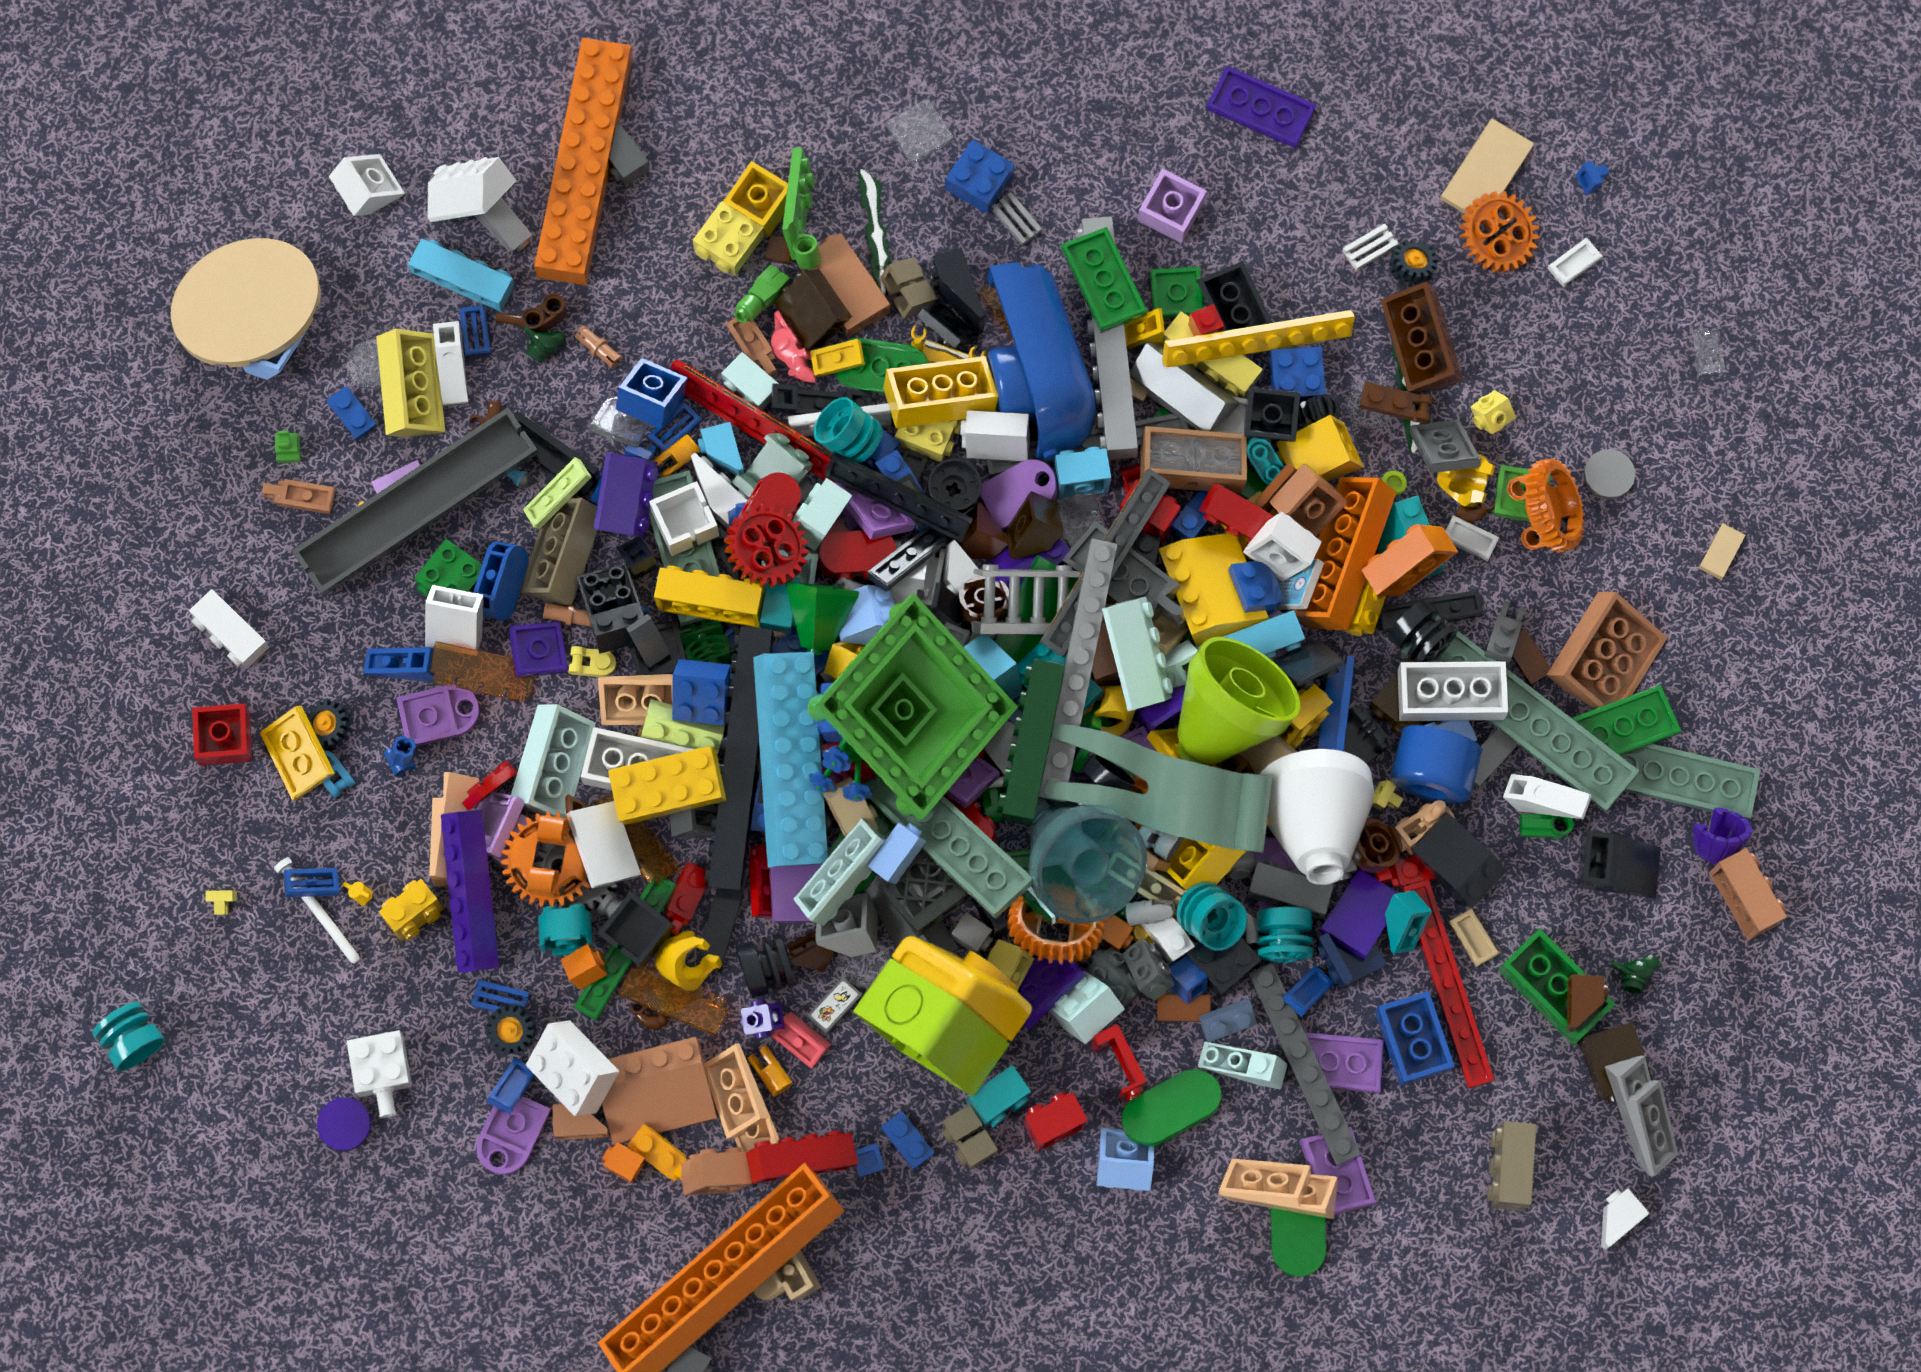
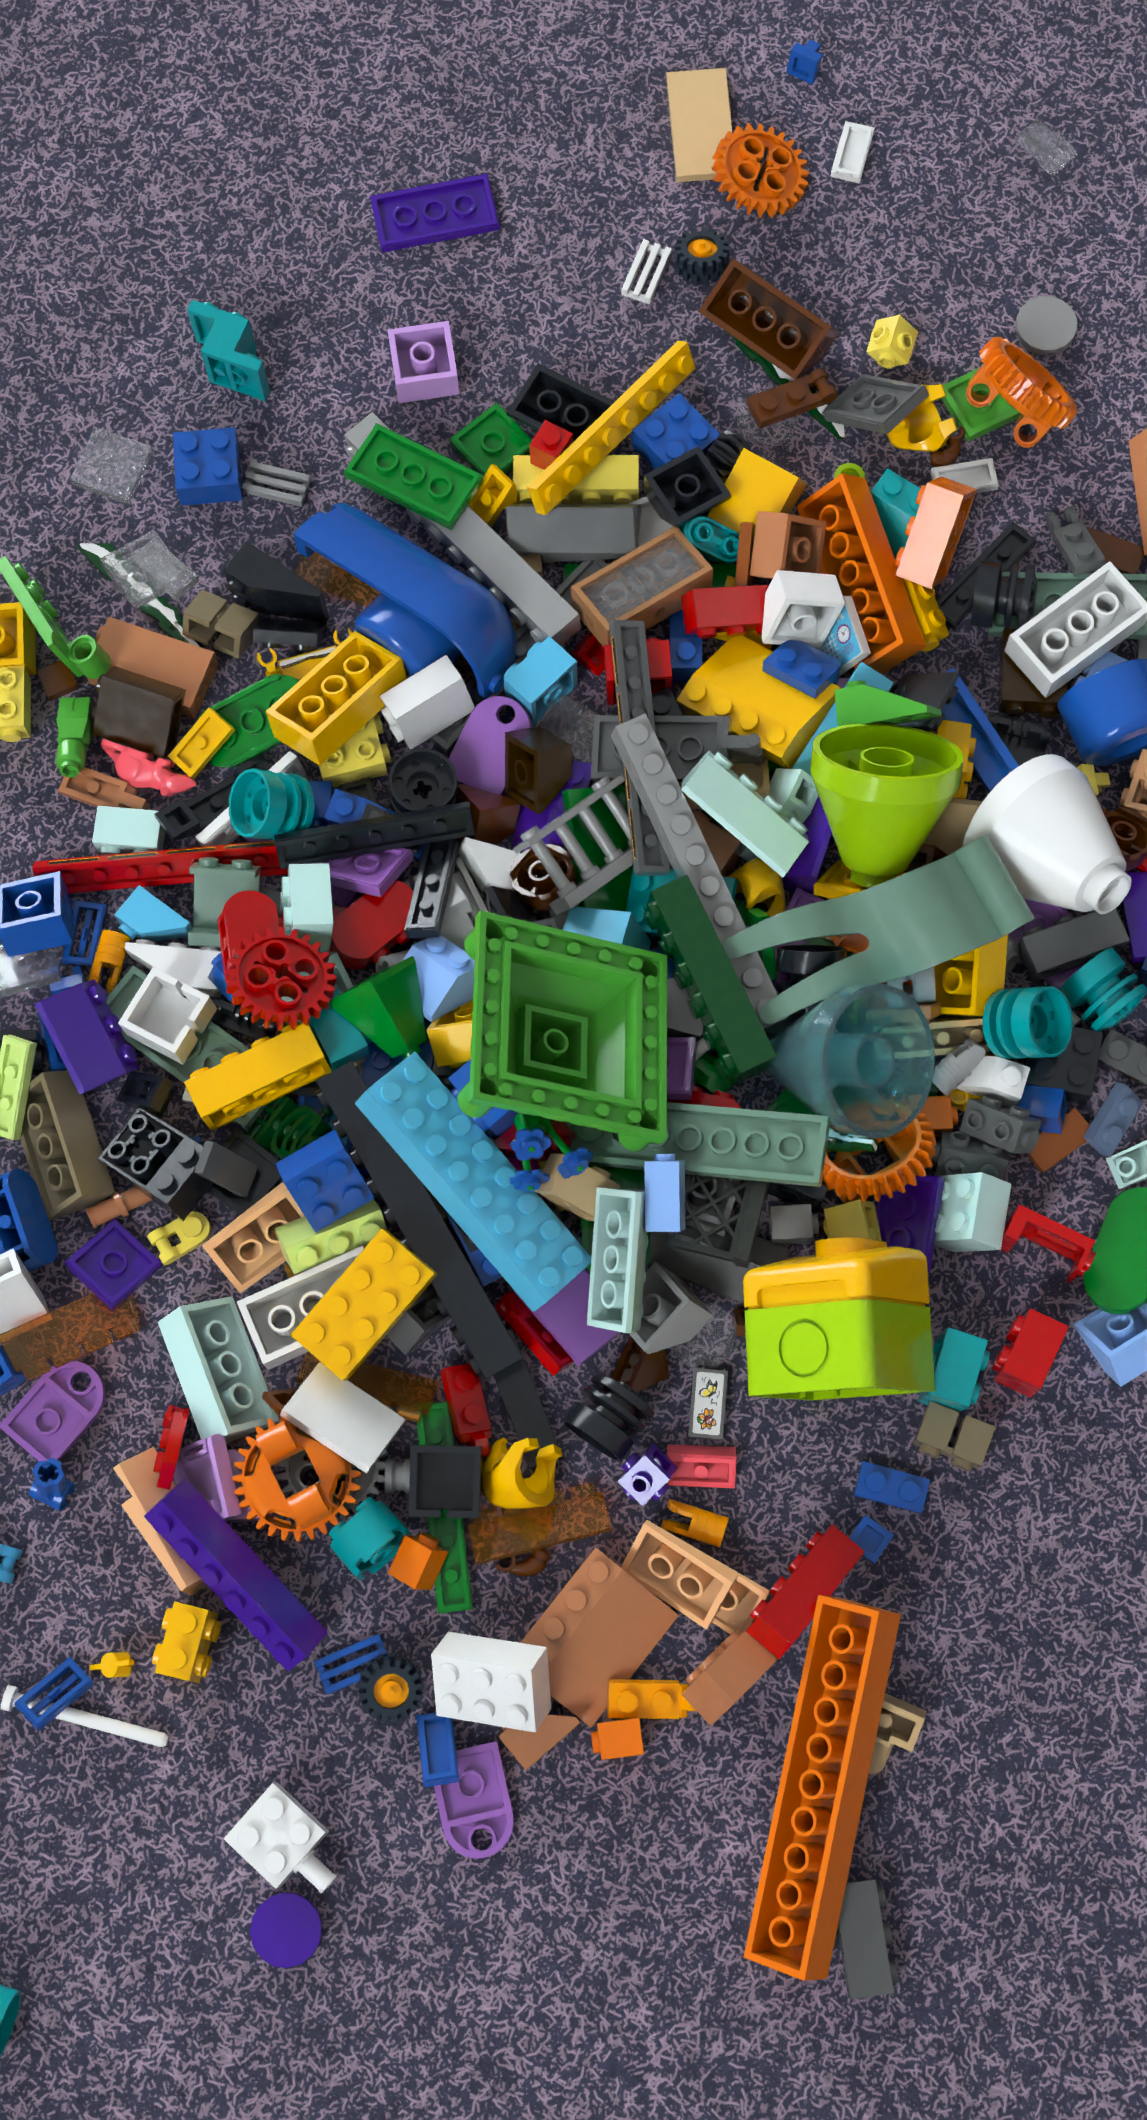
camera: 30 degrees left, 0 degrees up
(888, 216) = (131, 581): none -> clear plate
(899, 226) = (164, 569): none -> clear tile
(1050, 108) = (228, 349): none -> teal bracket
(1276, 645) = (871, 705): none -> bright green slope

